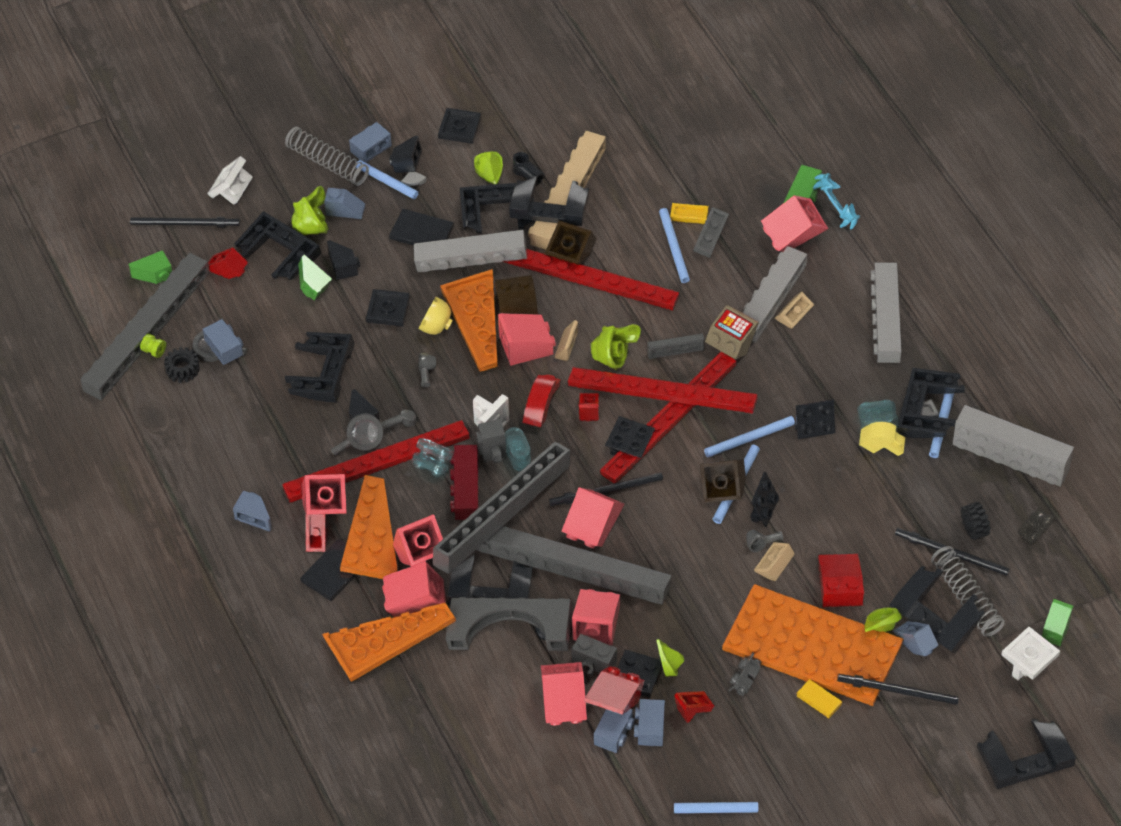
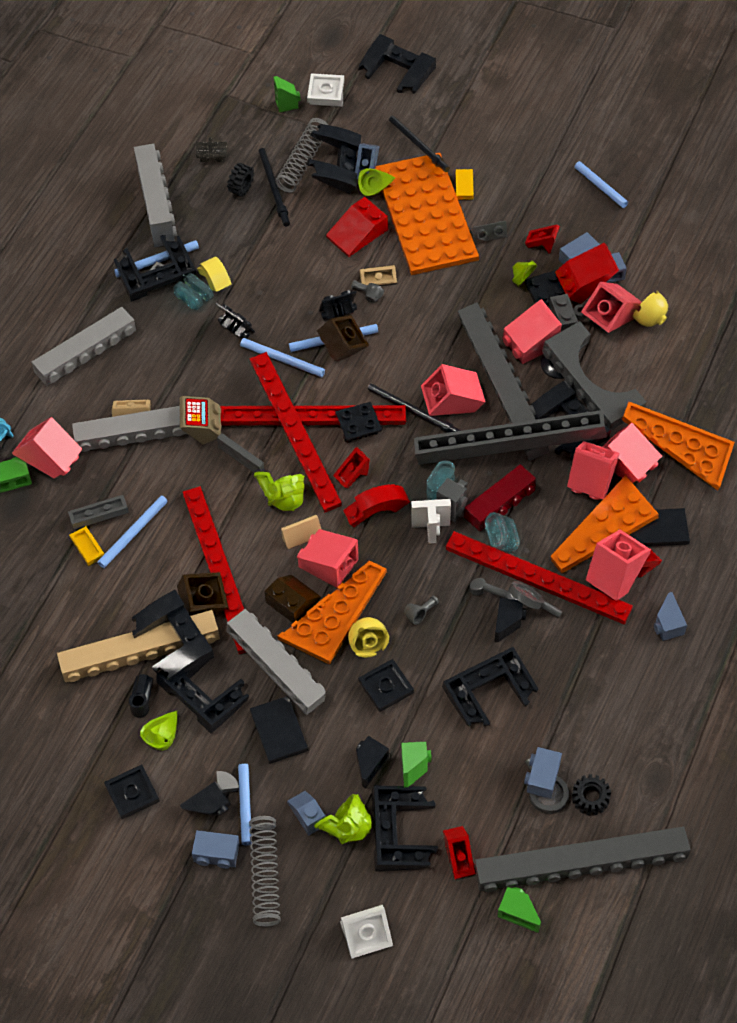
camera: 130 degrees left, 5 degrees up
(153, 345) = (595, 830): lime wheel -> none
(220, 222) = (416, 904): black bar -> none
(530, 719) = (652, 310): none -> light yellow cylinder

